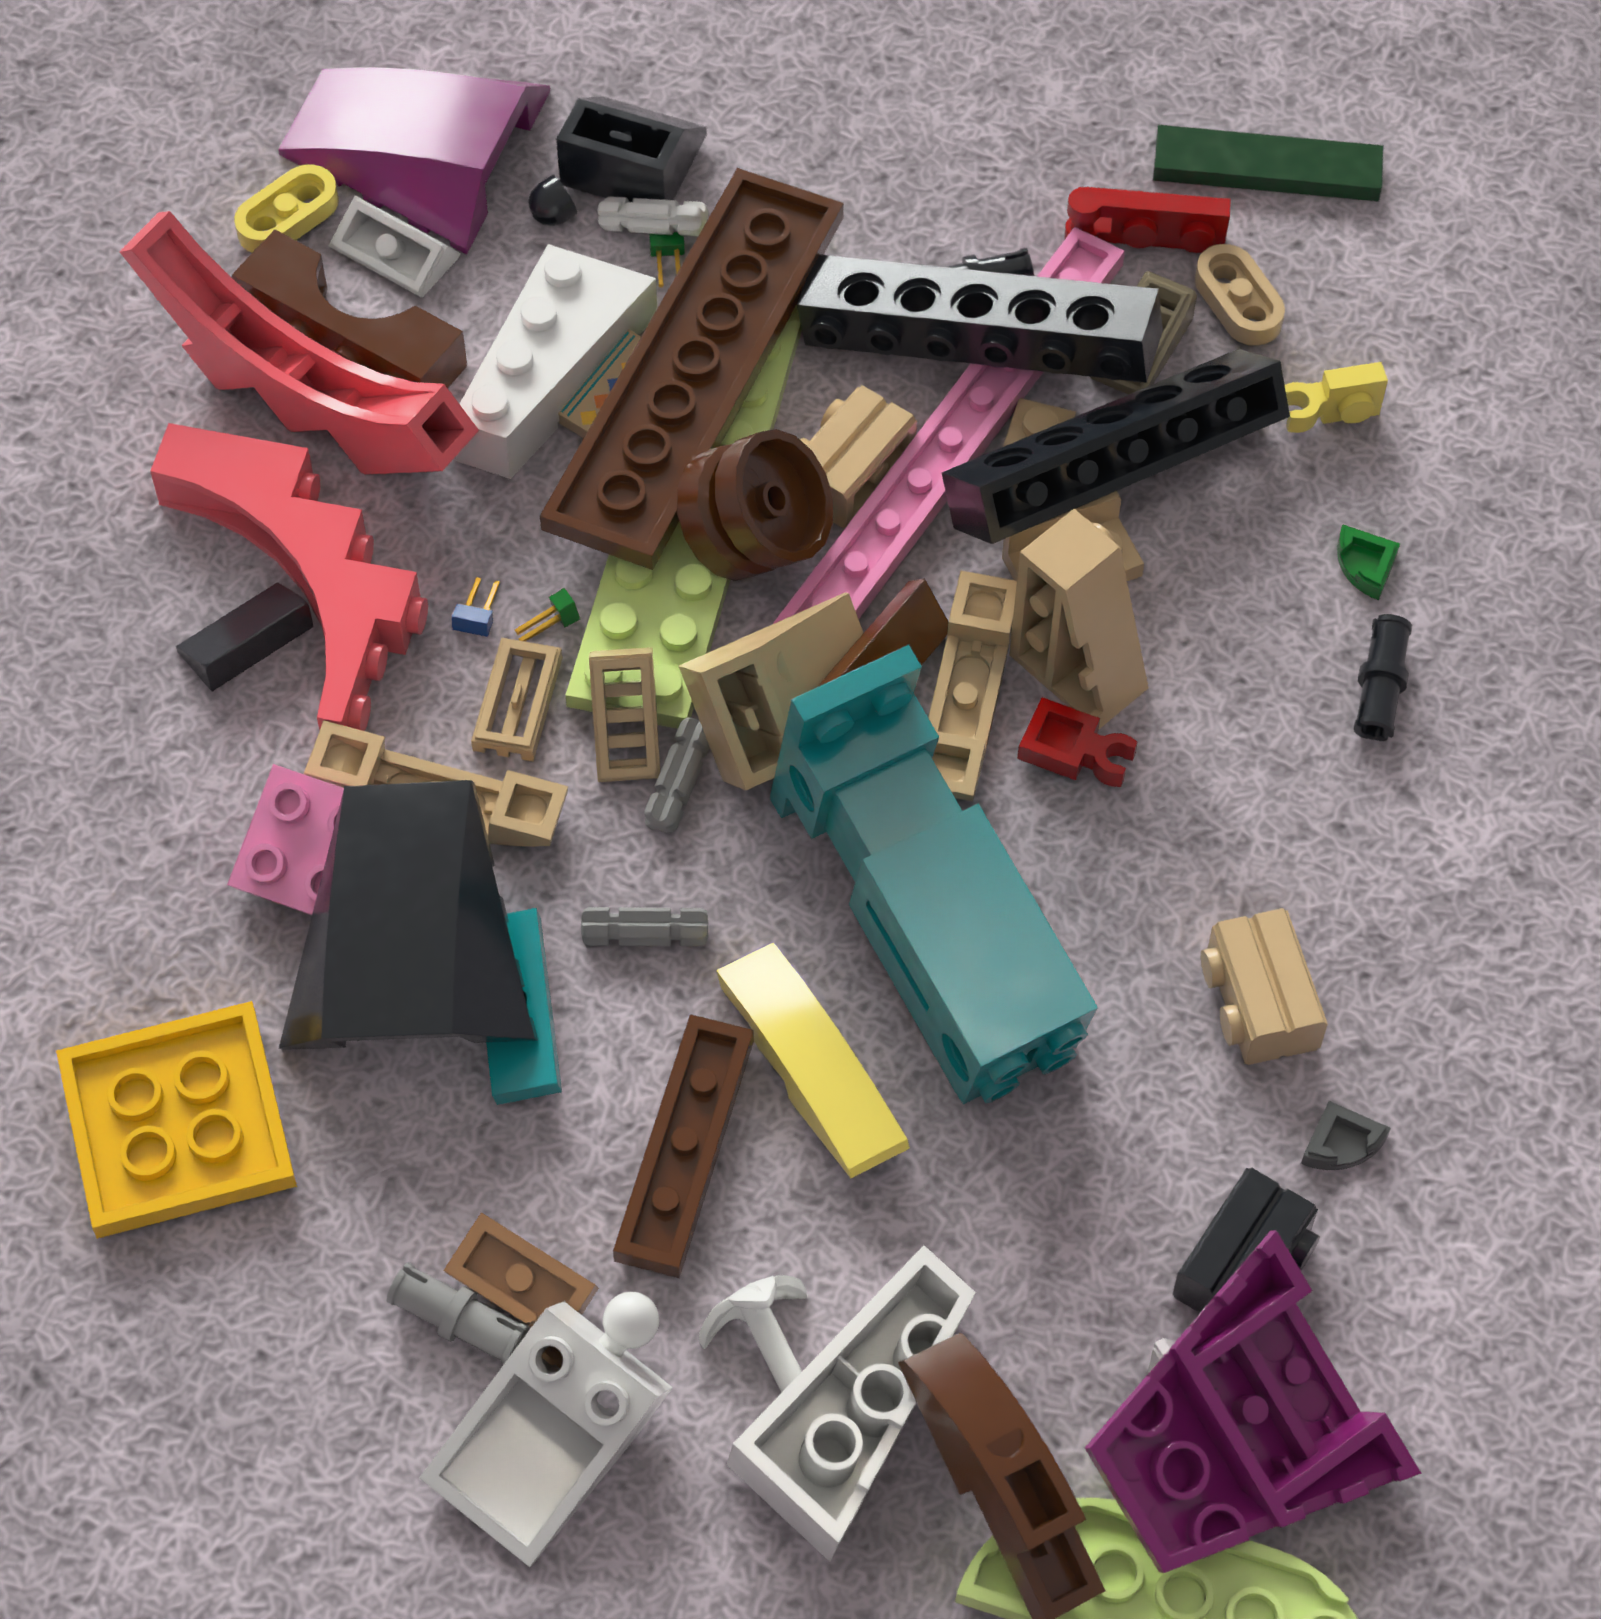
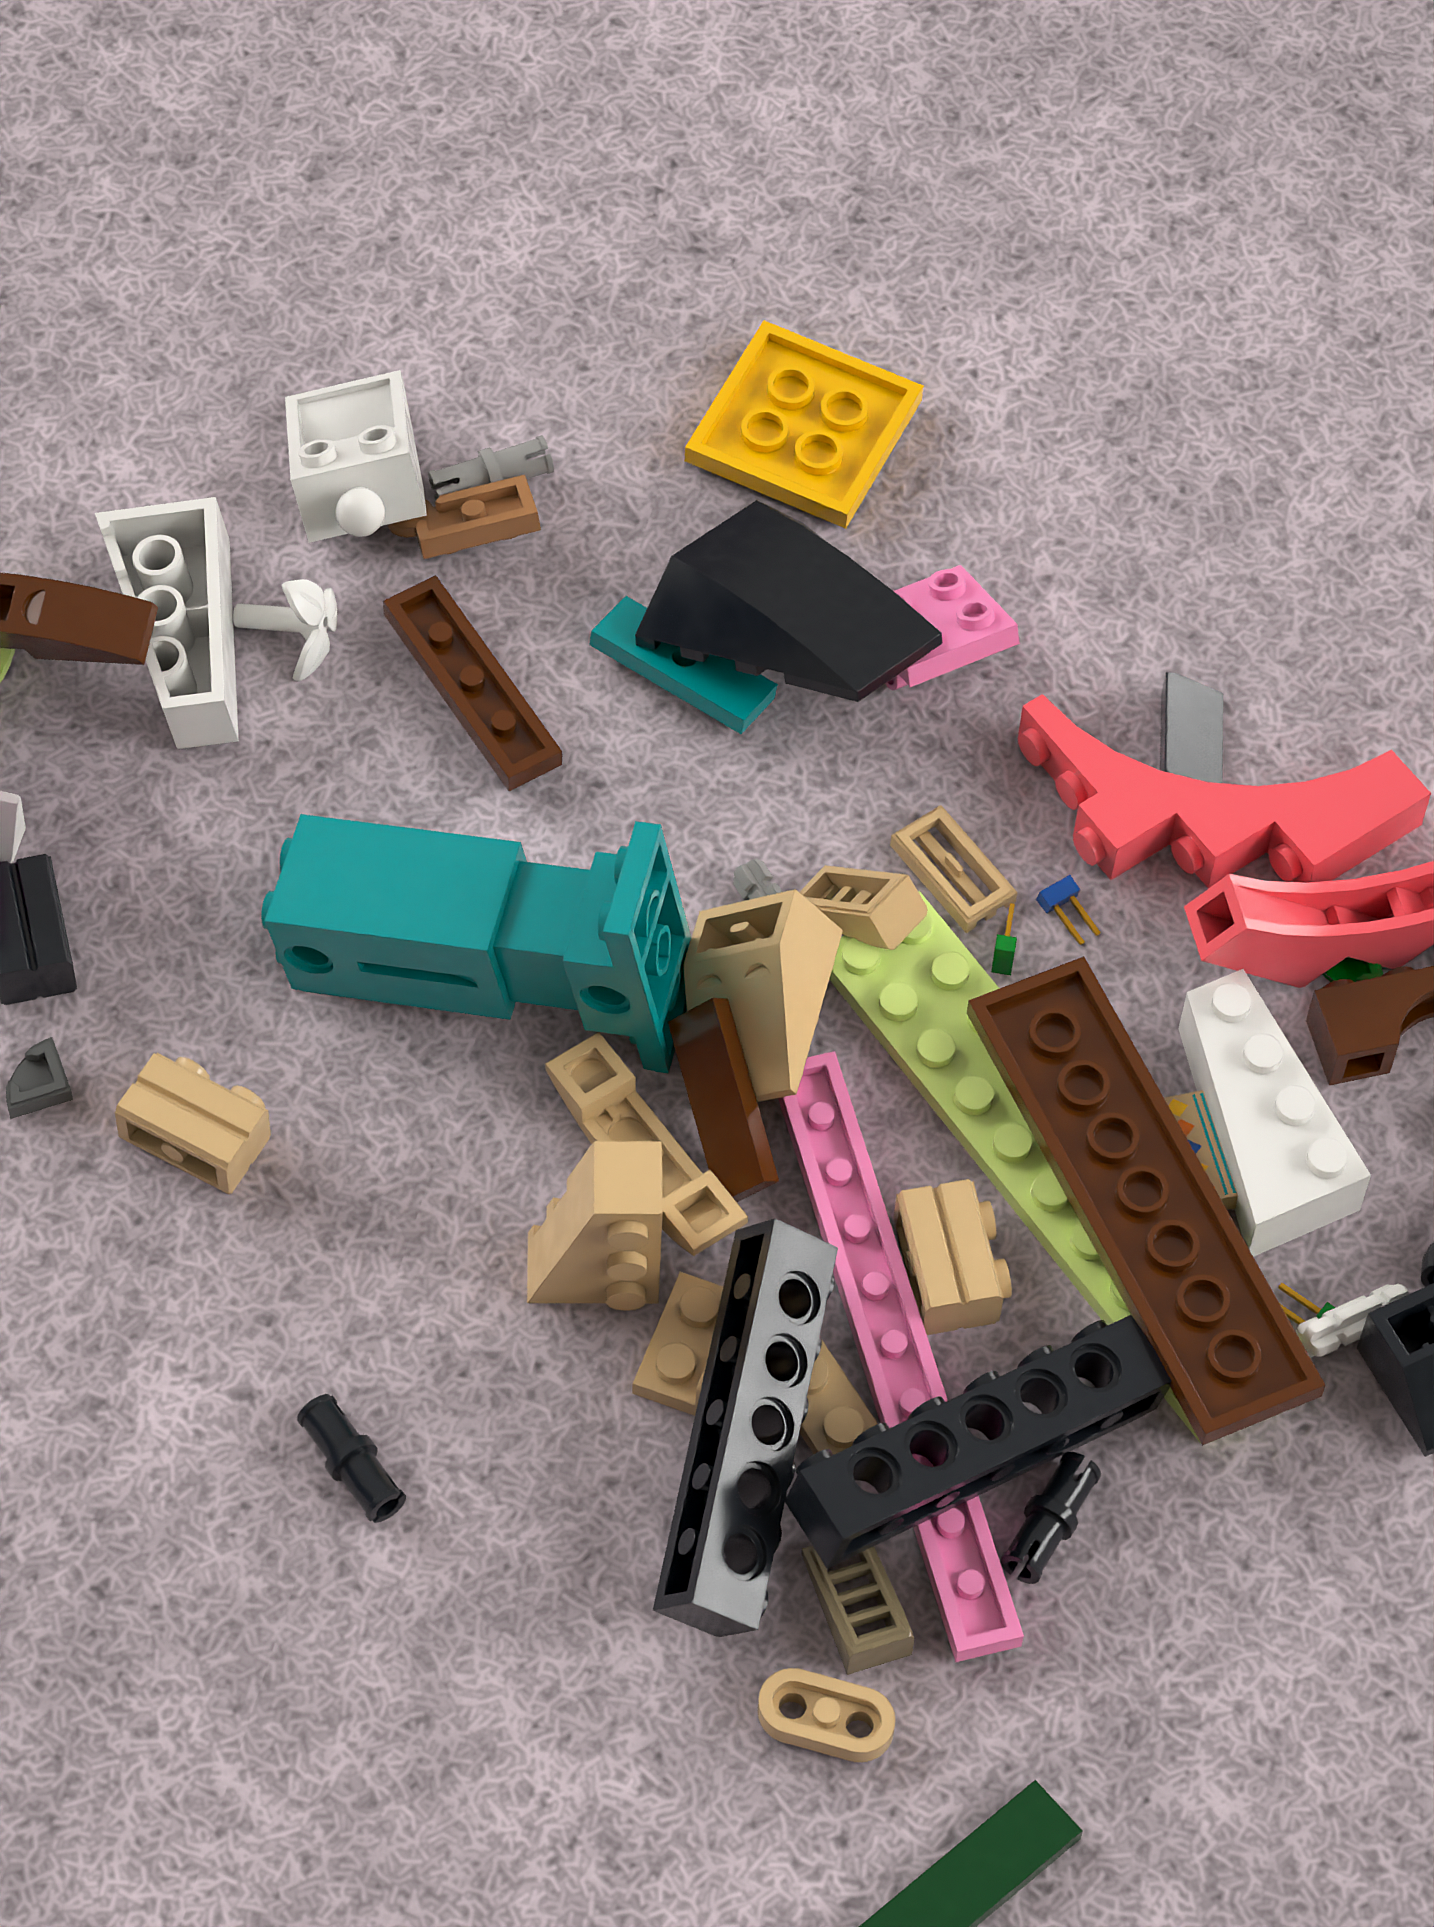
camera: 130 degrees right, 0 degrees up
(514, 810) = (921, 750): tan slope -> none
(644, 926) = (672, 791): light grey axle -> none
(755, 505) = (944, 1105): reddish brown wheel -> none
(813, 1060) = (449, 794): light yellow slope -> none
(1067, 739) = (525, 1183): red plate -> none
(1149, 218) = (974, 1708): red plate -> none
(1342, 395) = (632, 1690): light yellow plate -> none
(1366, 559) = (471, 1566): green tile -> none

